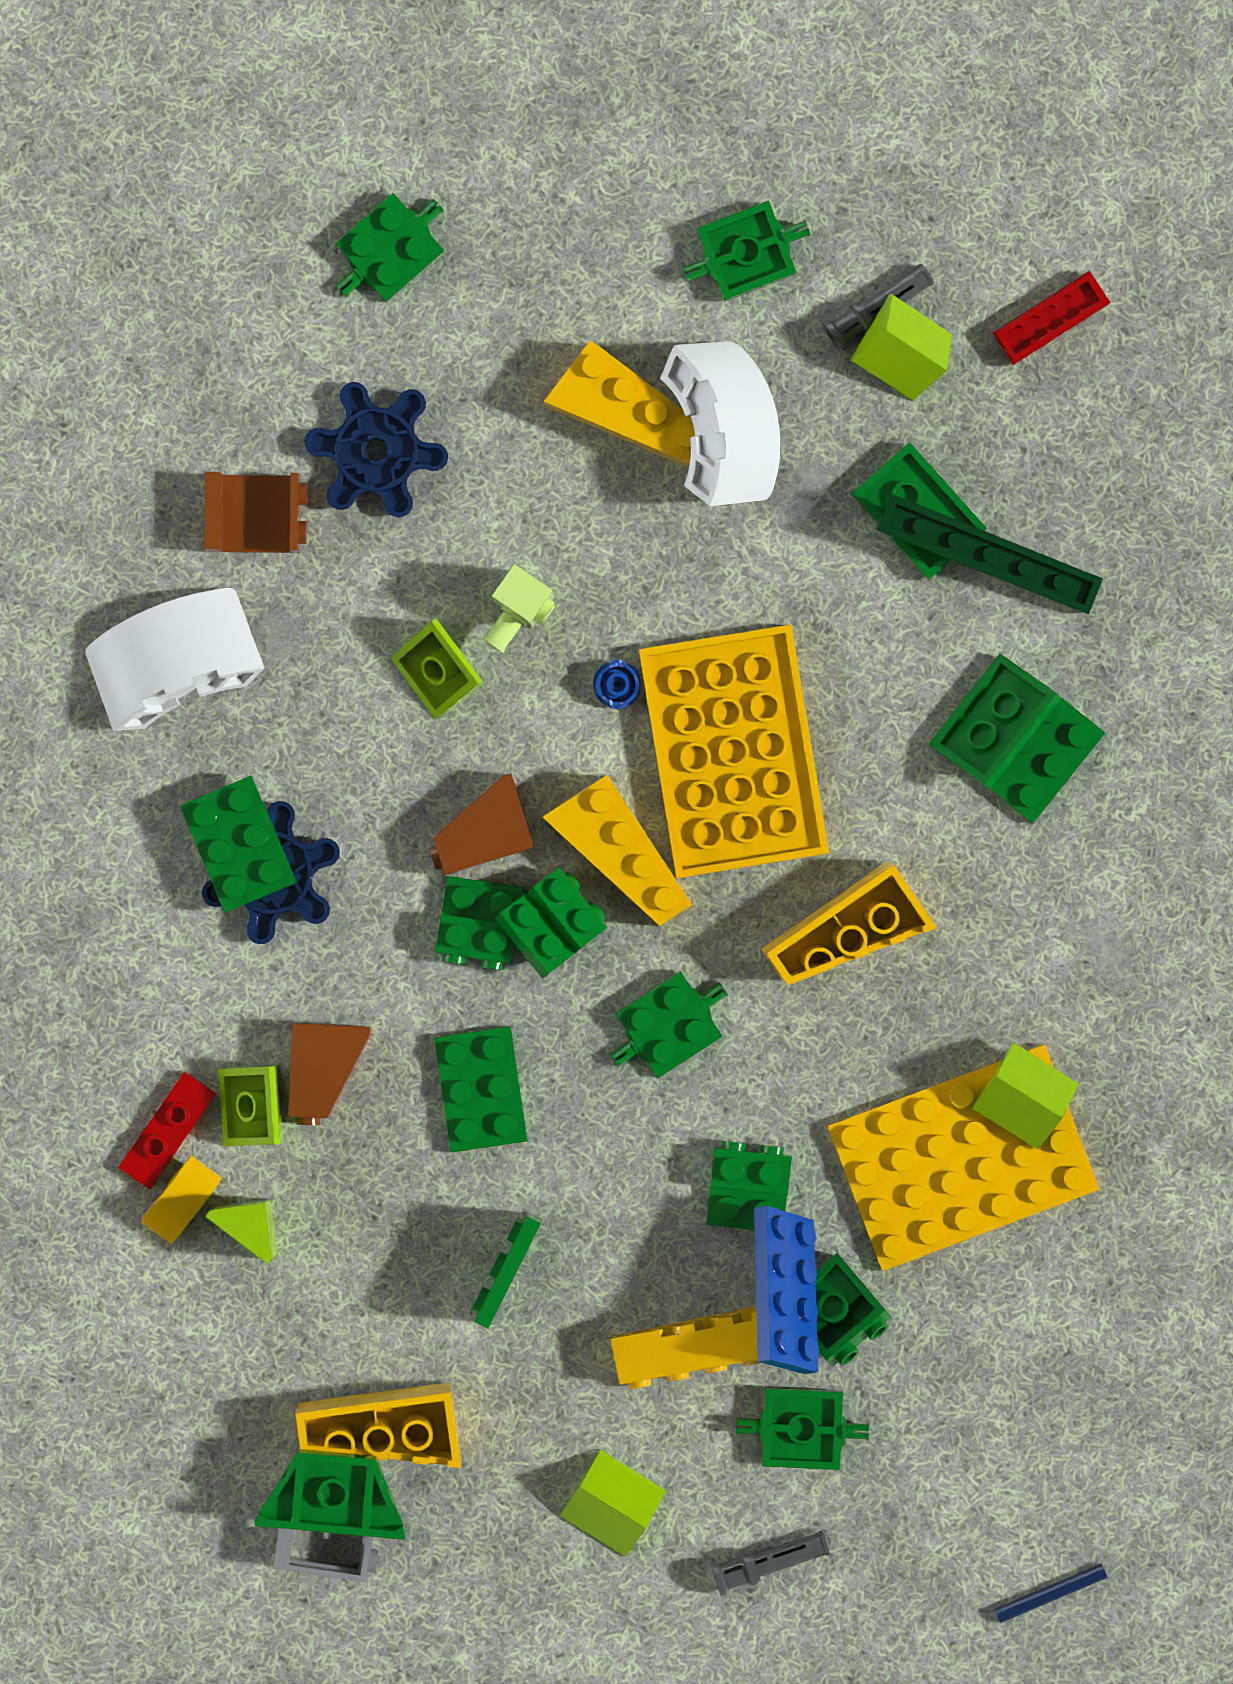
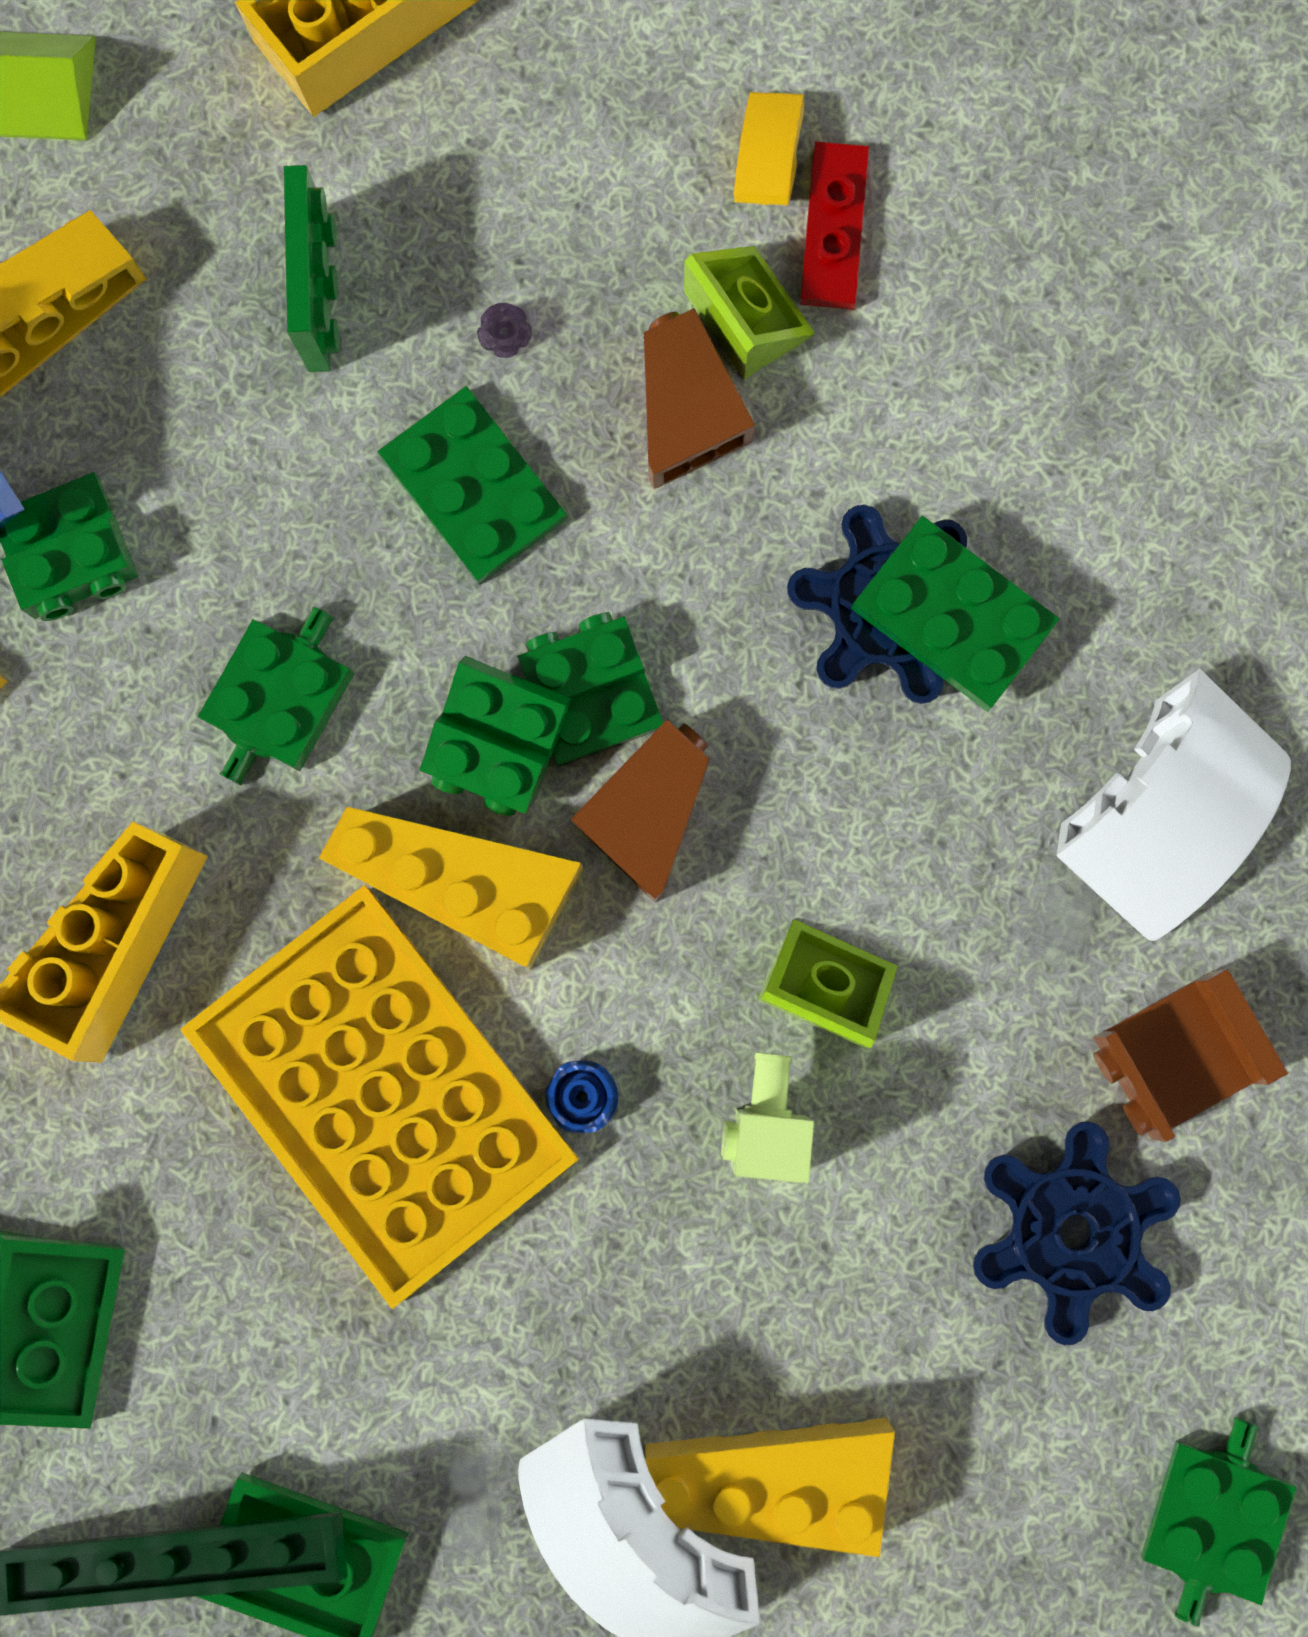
camera: 155 degrees right, 5 degrees down
(250, 1225) = (667, 146): lime slope -> none
(411, 1186) = (501, 316): none -> clear purple plate

